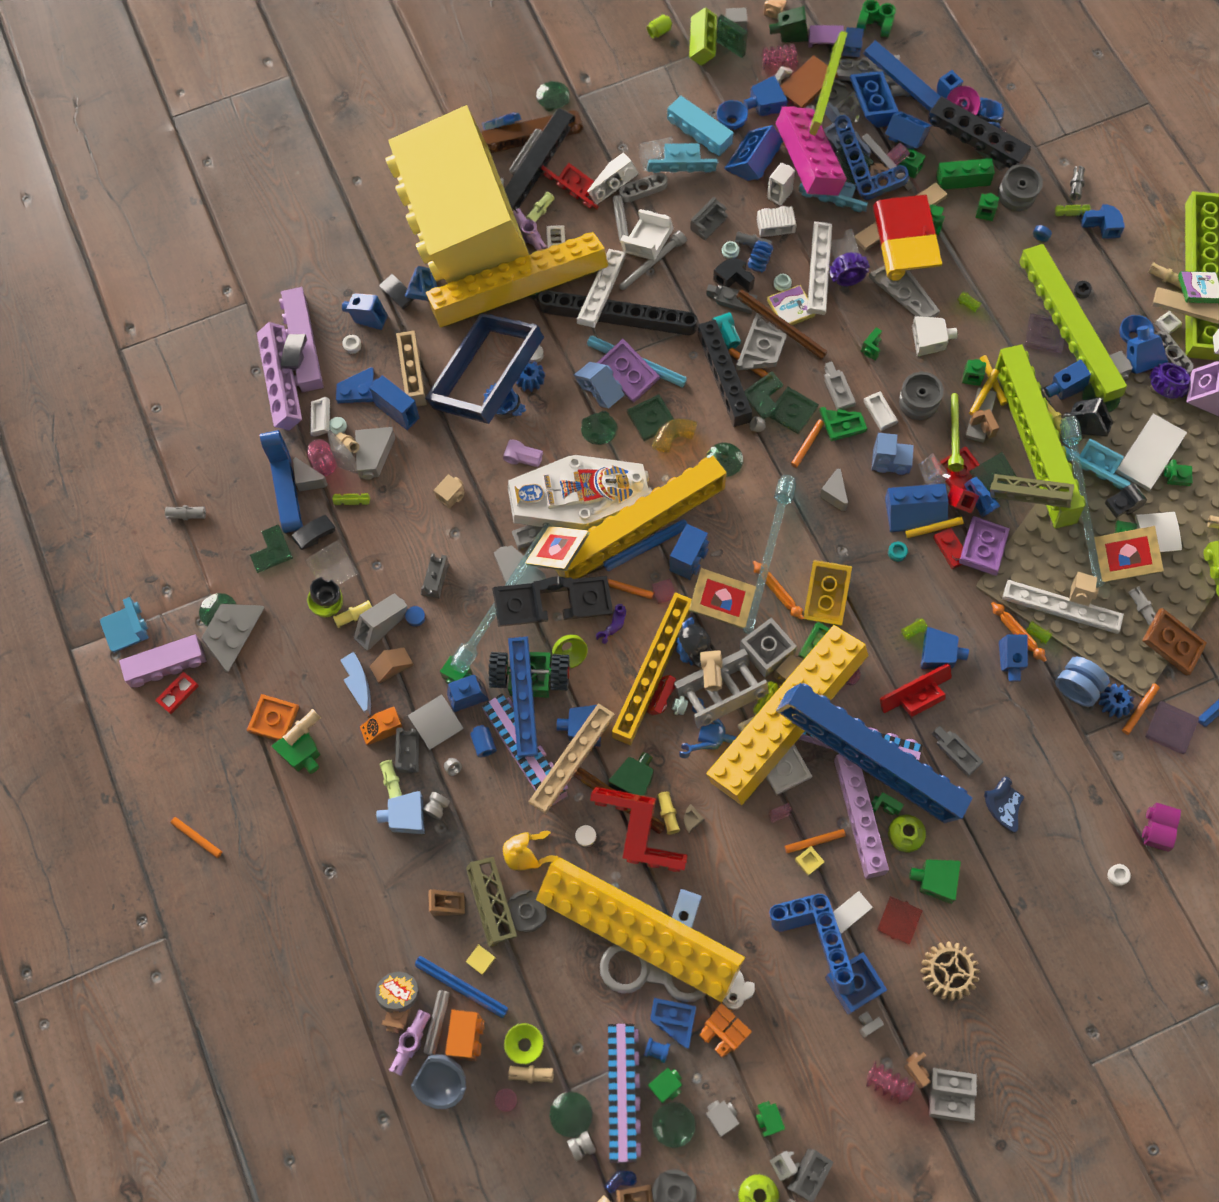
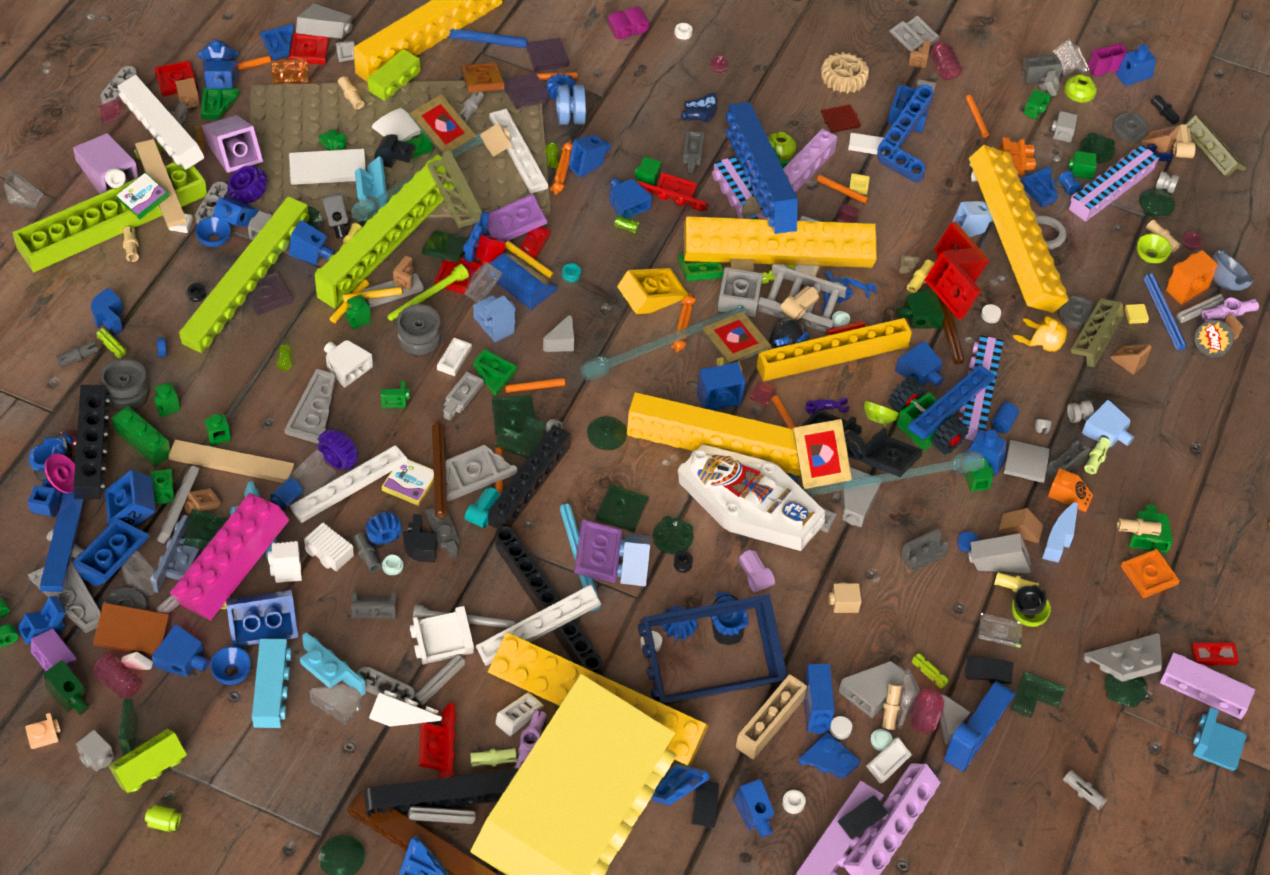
camera: 140 degrees left, 15 degrees down
(369, 411) = (840, 727): none -> white tile
(571, 758) = (956, 345): tan tile -> none
(573, 413) = (682, 556): none -> black bush
(671, 430) = (624, 477): clear yellow cylinder -> none
(782, 282) = (390, 502): light aqua plate -> none
(804, 1051) = (977, 116): none -> orange bar
(827, 84) = (134, 586): lime tile -> none
(841, 222) = (286, 493): none -> blue brick
(860, 164) = (224, 494): blue beam -> none
(898, 153) = (168, 490): clear pink tile -> none
(906, 235) = (262, 427): door -> none
(938, 879) = (792, 109): green torso -> none
(957, 689) = (648, 171): none -> green brick
(1050, 868) = (718, 64): none -> clear pink tile
(1132, 666) = (526, 90): none -> tile

